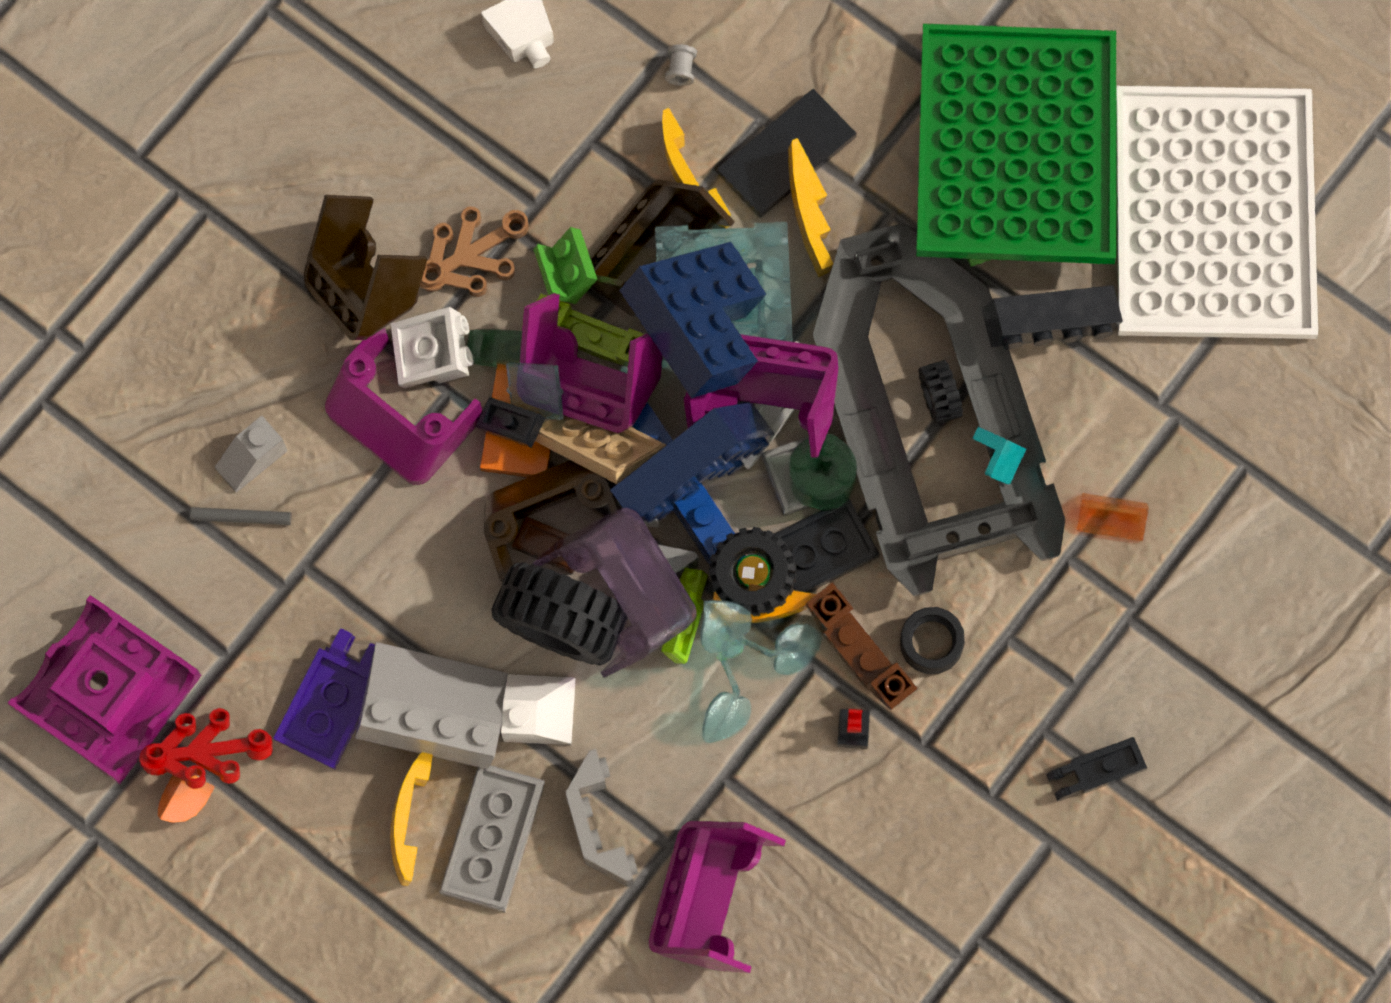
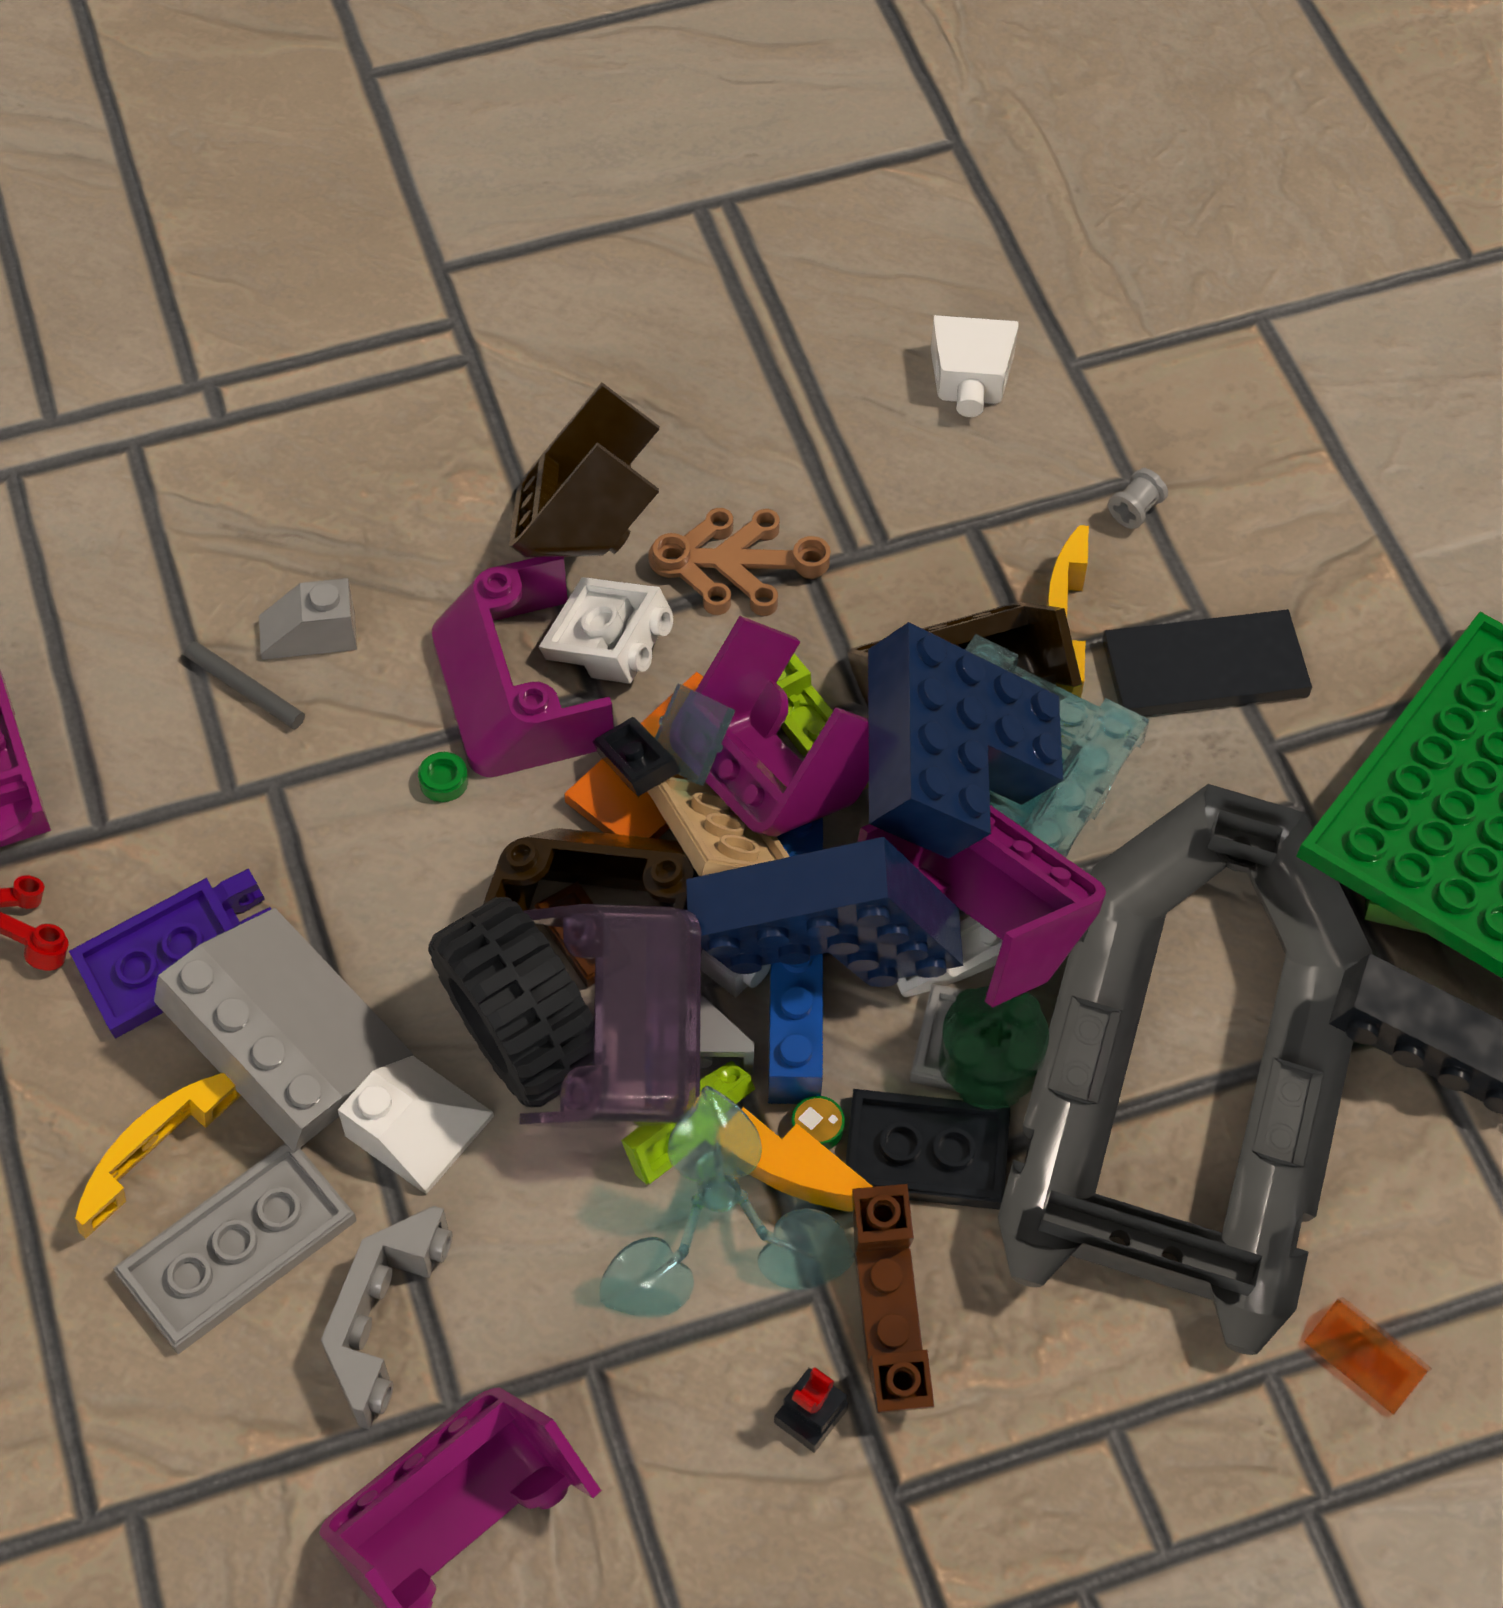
camera: 30 degrees right, 15 degrees down
(401, 500) = (443, 776): none -> green tile
(494, 346) = (677, 663): clear green slope -> none
(566, 266) = (835, 631): bright green bracket -> none
(753, 542) = (799, 1061): black tyre -> none
(807, 197) = (1197, 722): yellow slope -> none
(939, 615) = (1007, 1319): black tyre -> none
(940, 392) = (1222, 1042): black tyre -> none
(1005, 458) = (1256, 1169): teal panel -> none

